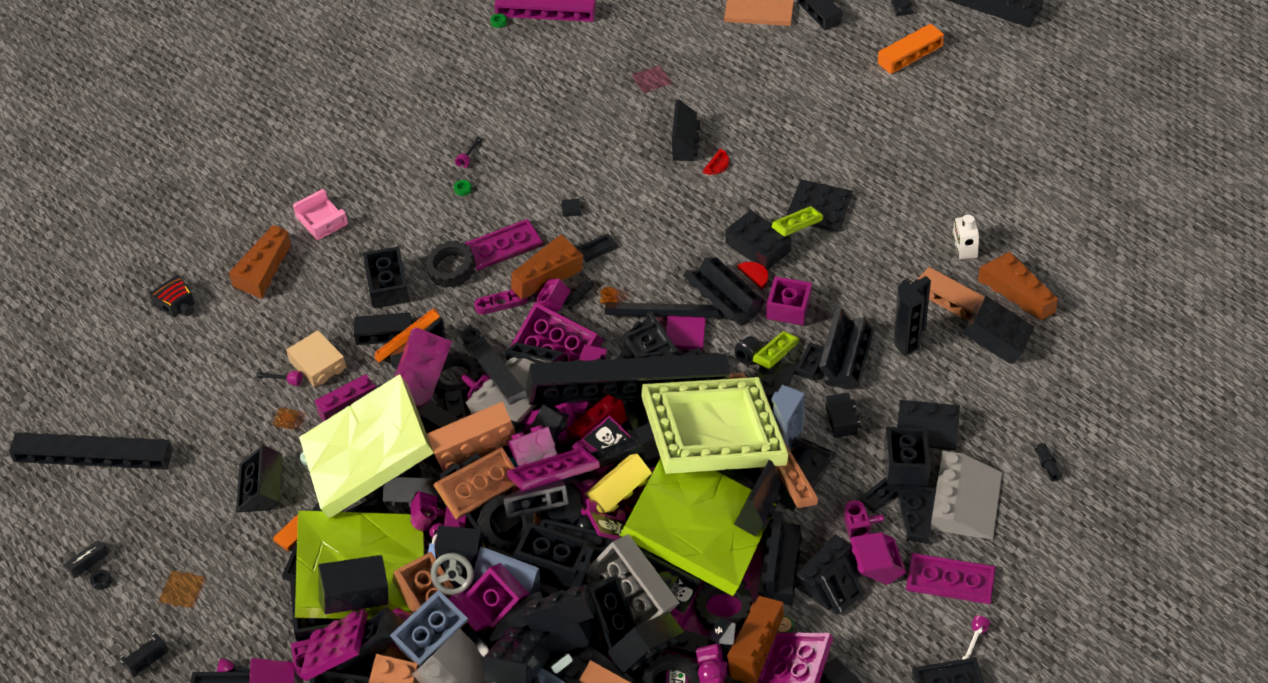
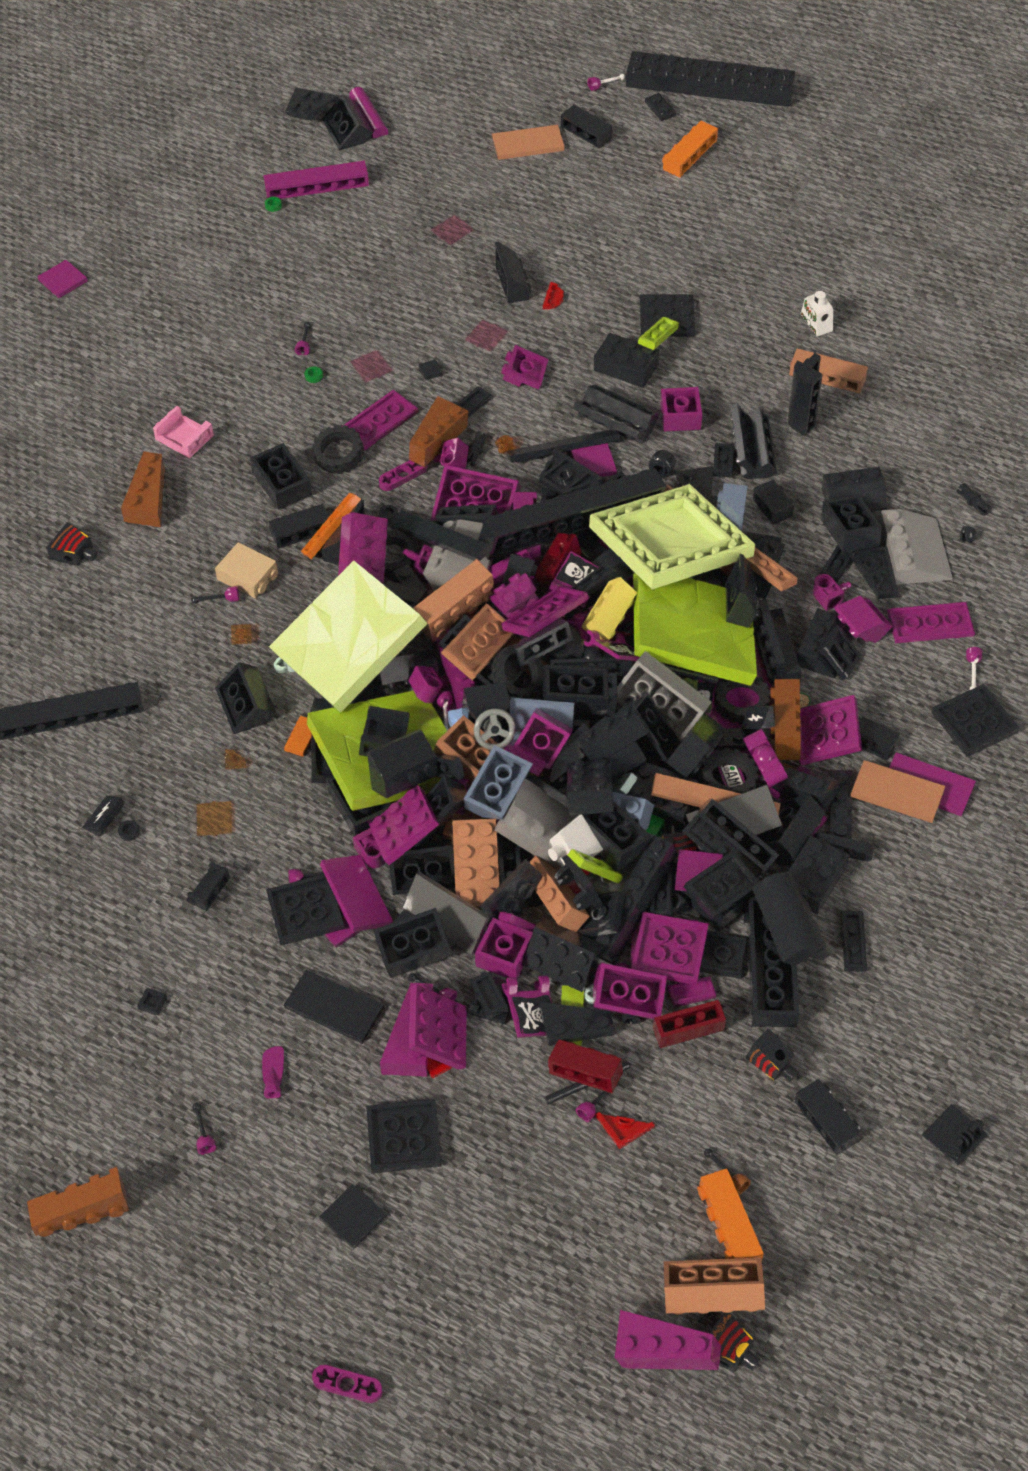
camera: 20 degrees left, 5 degrees up
(223, 538) = (234, 760): none -> clear orange tile
(282, 50) = (62, 278): none -> magenta tile
(343, 397) = (295, 601): magenta brick -> none
(358, 543) = (382, 727): none -> black panel
(397, 599) = (449, 766): none -> black plate
(518, 191) = (371, 366): none -> clear pink piece
(638, 186) = (486, 335): none -> clear pink piece
(658, 225) = (524, 367): none -> magenta plate
(755, 272) = (634, 391): red tile -> none
(776, 349) = (687, 457): lime tile -> none
(998, 330) = (884, 391): black brick -> none
(1018, 285) = (883, 347): dark orange wedge -> none
(1026, 497) = (967, 534): none -> black hinge

